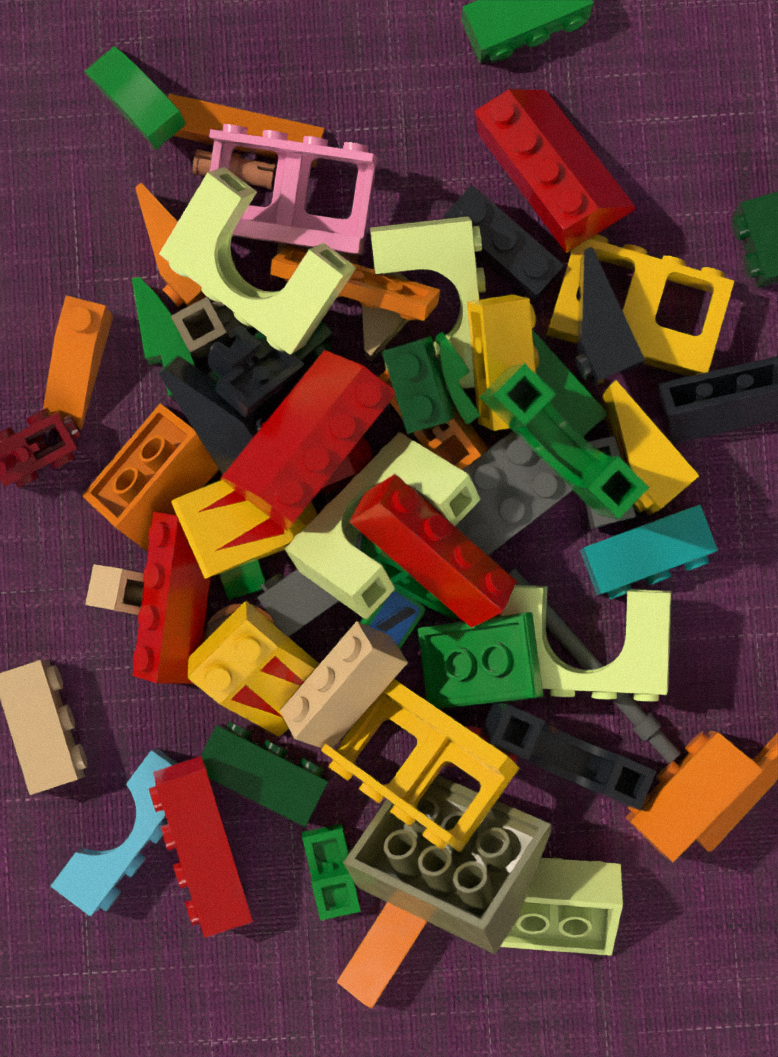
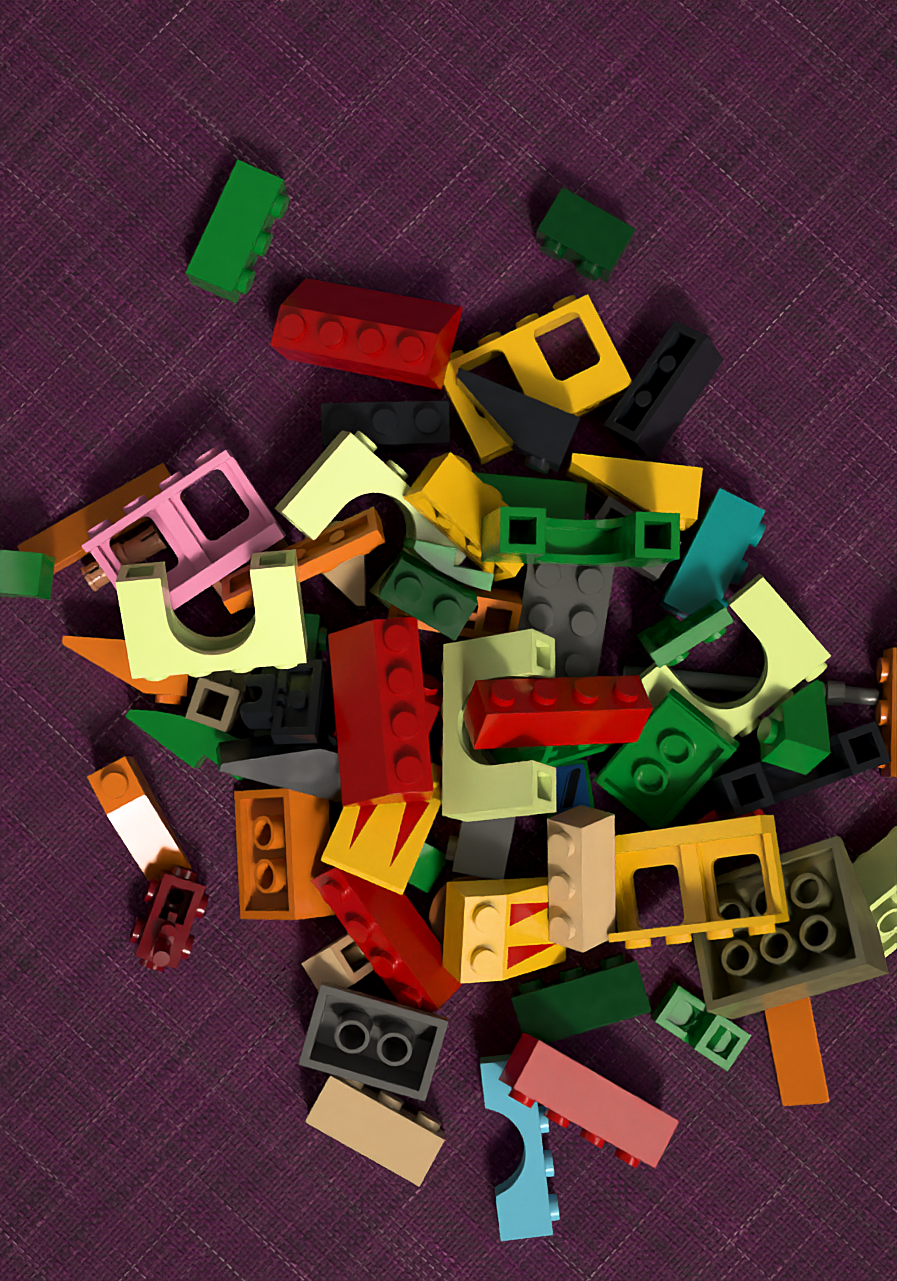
camera: 45 degrees left, 0 degrees up
(92, 663) = (373, 1041): none -> dark grey slope
(566, 577) = (671, 639): none -> green plate
(592, 725) = (797, 731): none -> green slope

